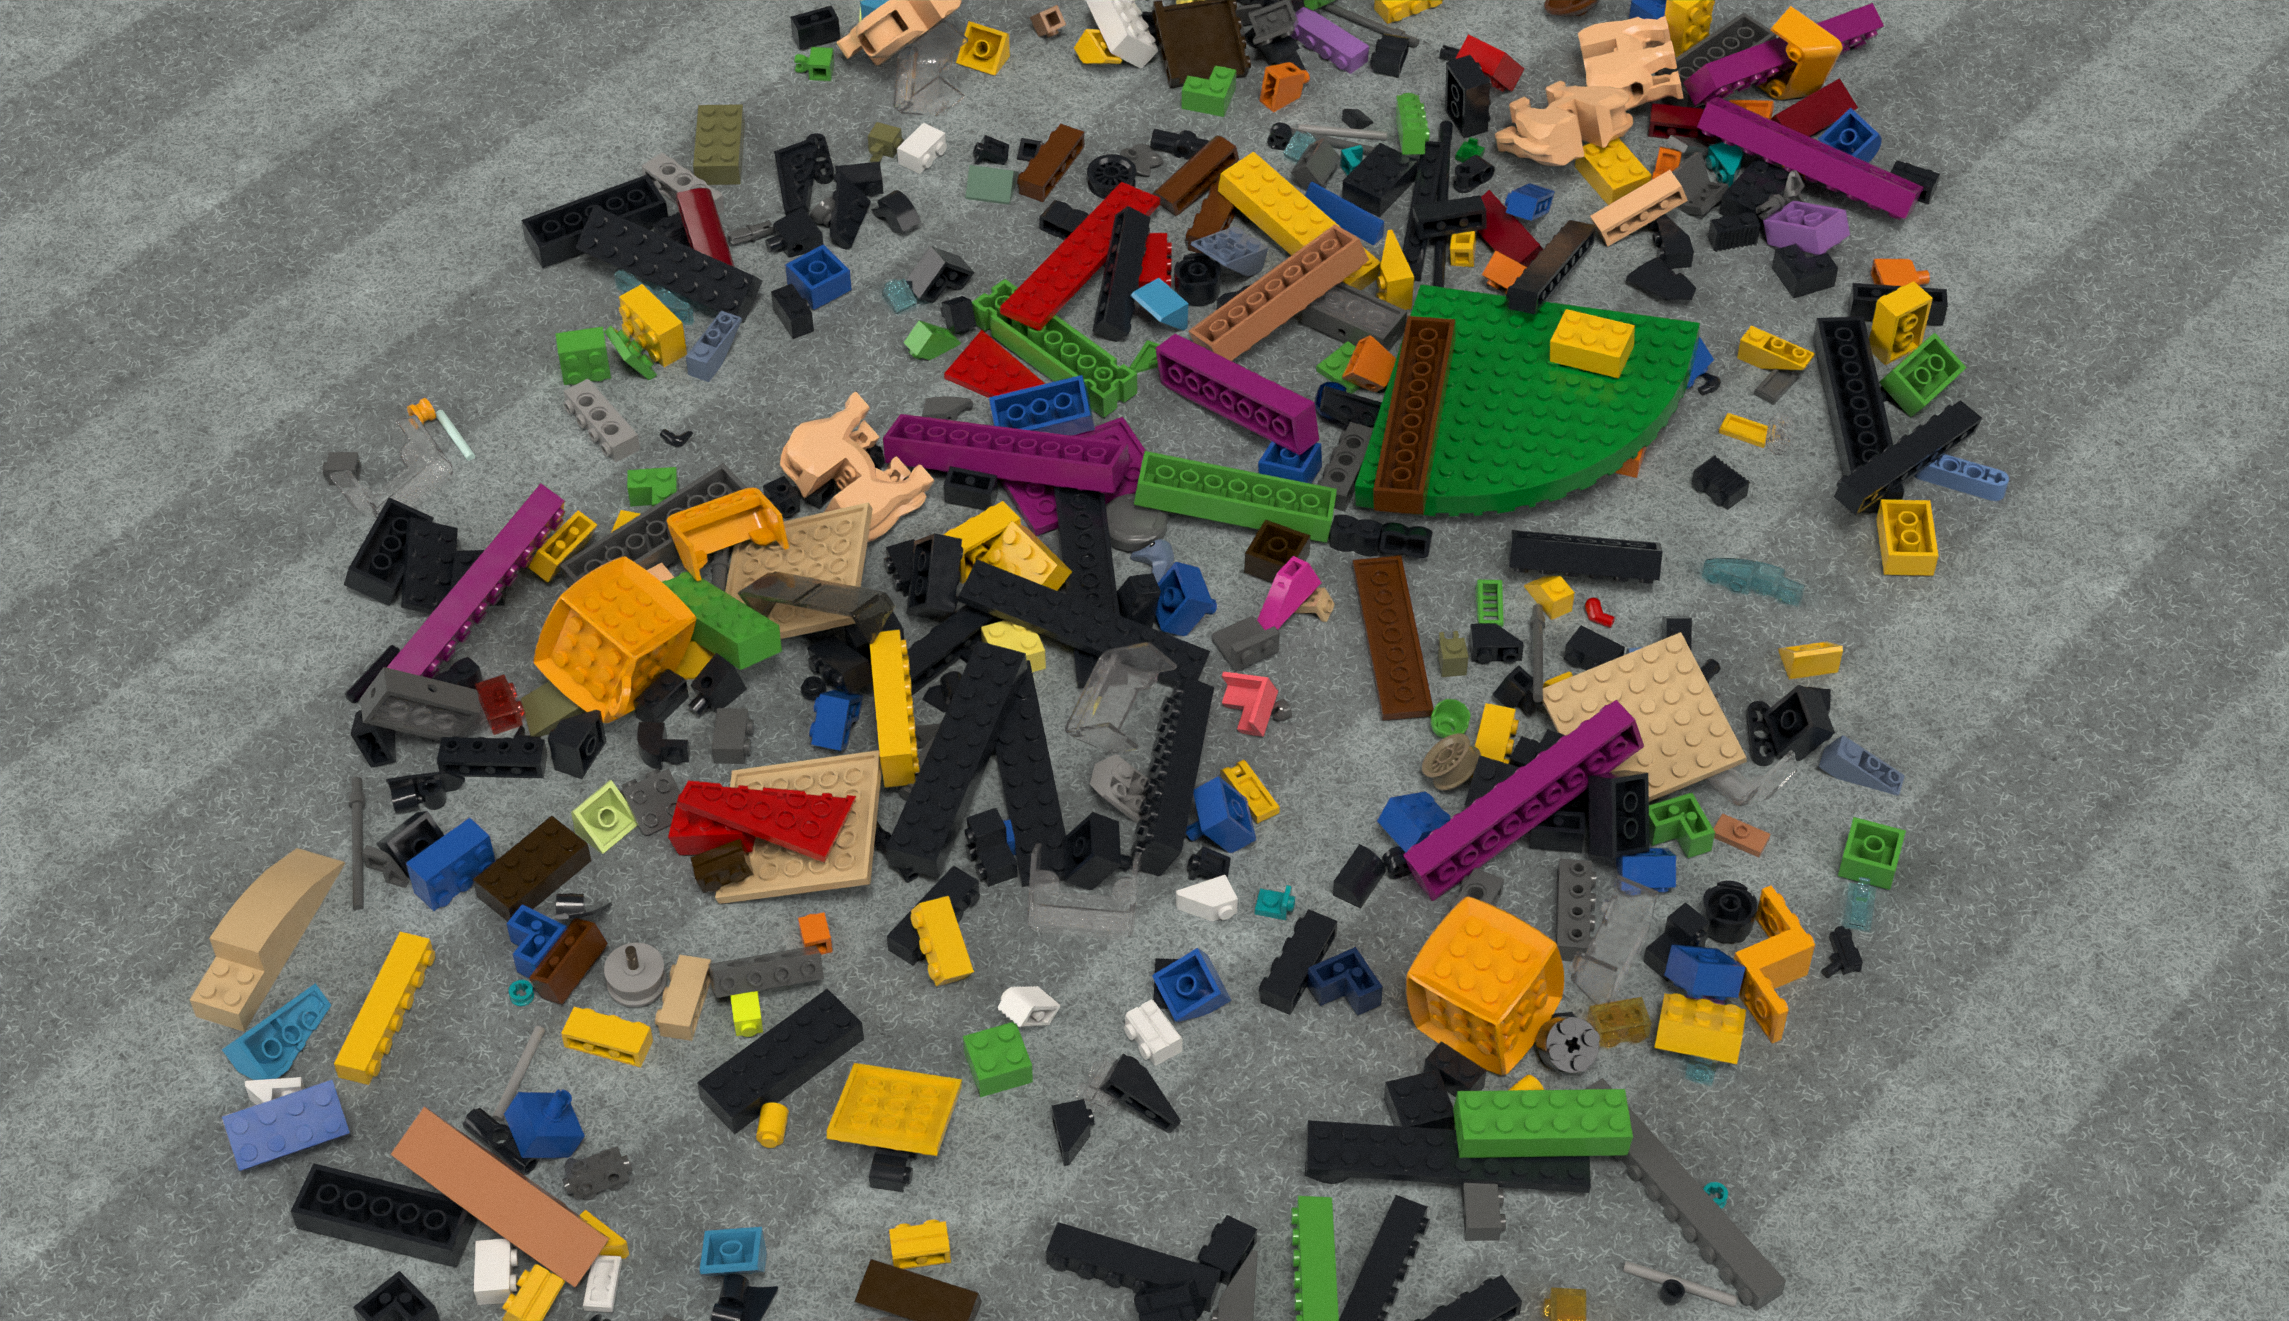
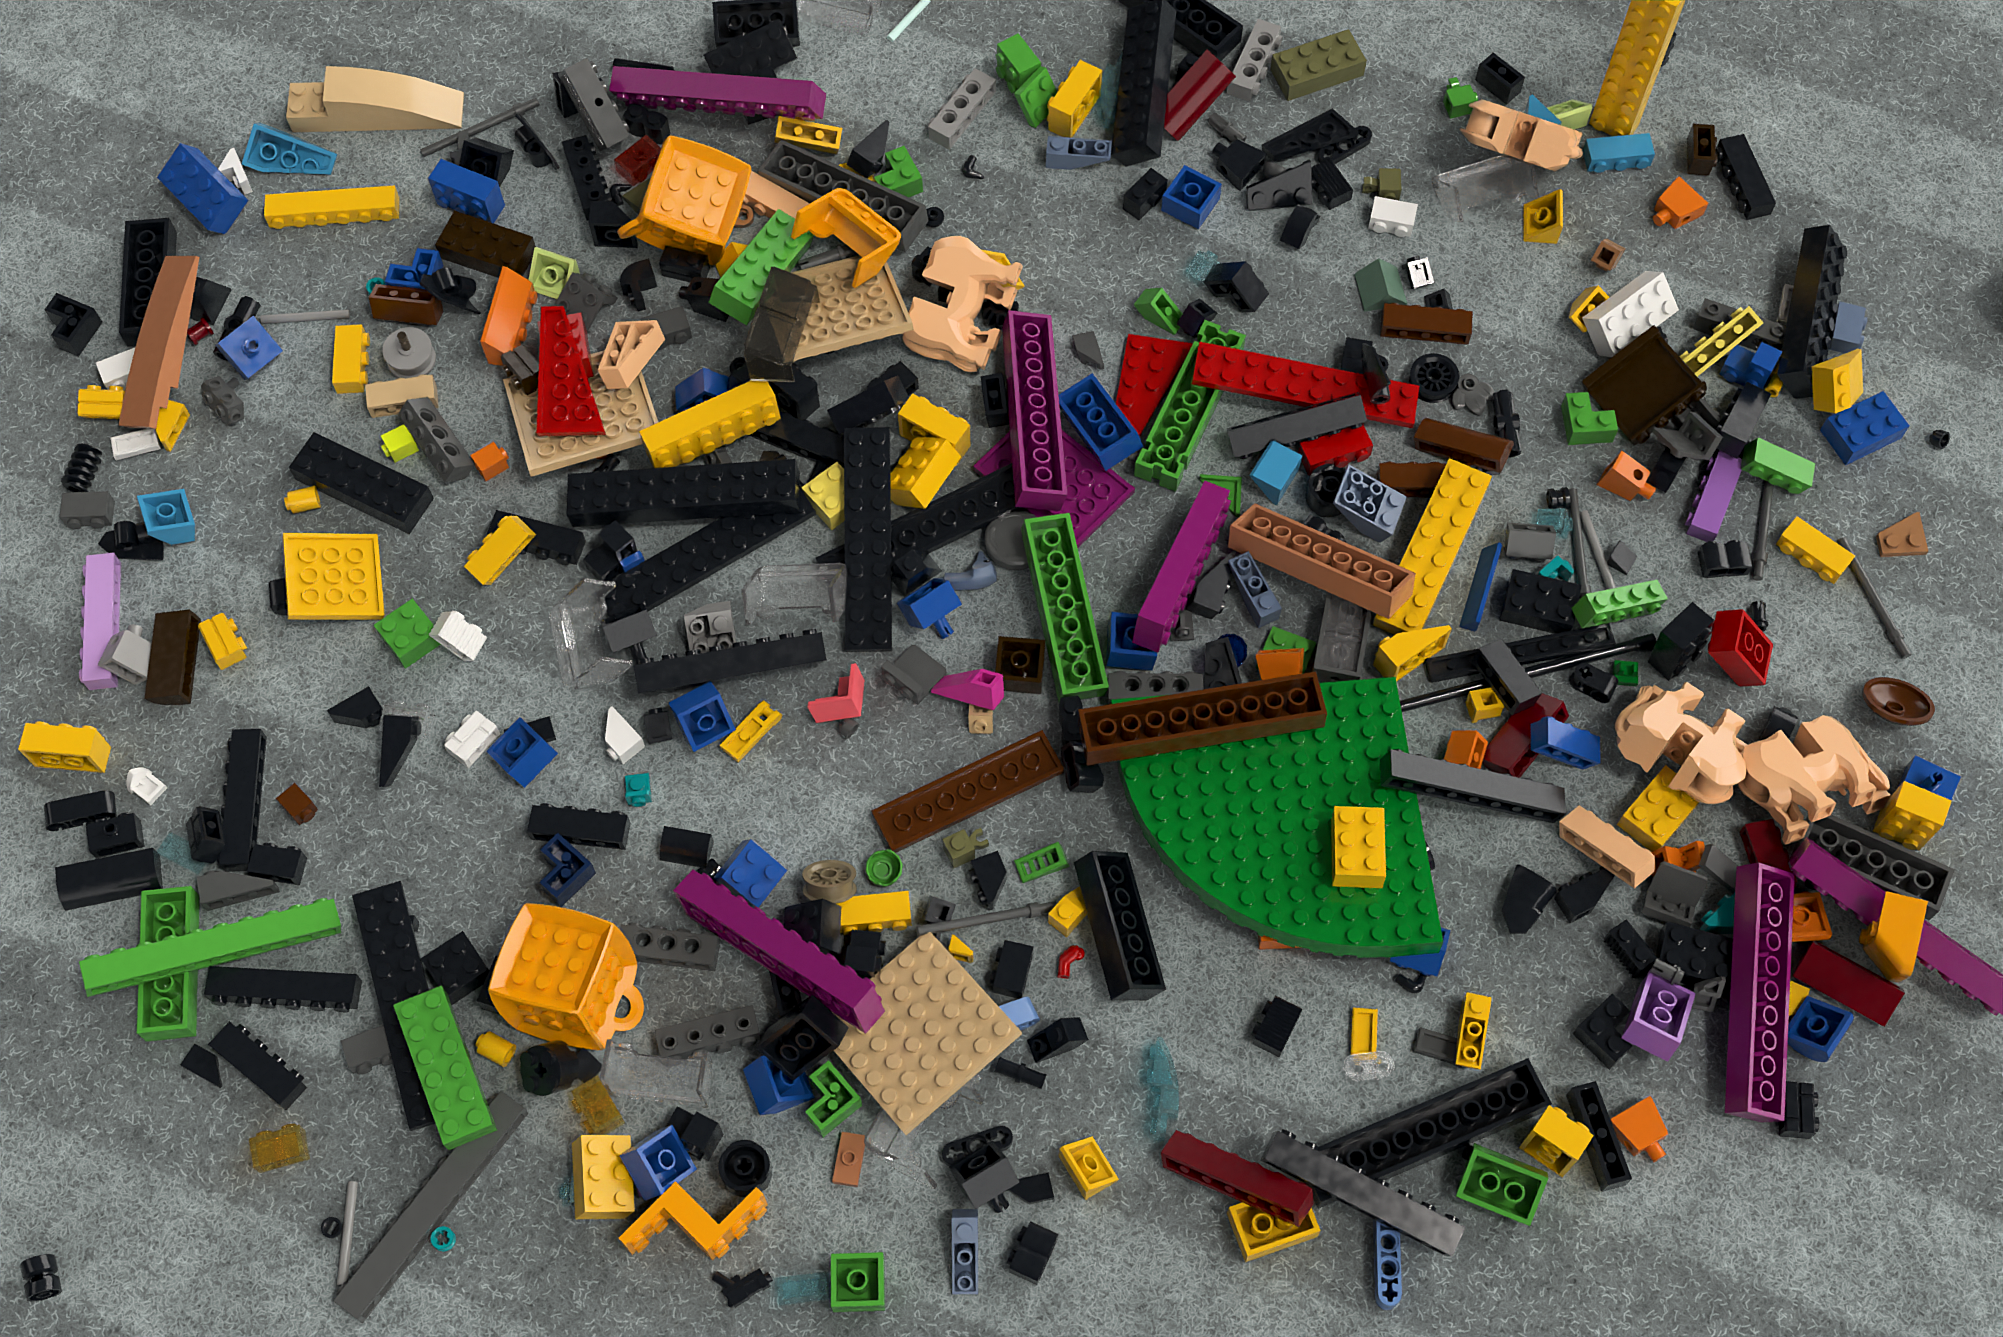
camera: 70 degrees right, 15 degrees up
(615, 499) = (868, 154): none -> black slope
(642, 871) = (508, 315): none -> orange slope
(758, 759) = (629, 351): none -> light nougat wedge
(1103, 193) = (1374, 372): none -> black panel
(1162, 1214) = (297, 804): none -> reddish brown brick
(1279, 362) = (1254, 590): none -> sand blue slope
(1569, 70) = (1779, 719): none -> black brick
(1864, 540) = (1237, 1178): none -> dark red brick
(1880, 718) = (1032, 1252): none -> black brick

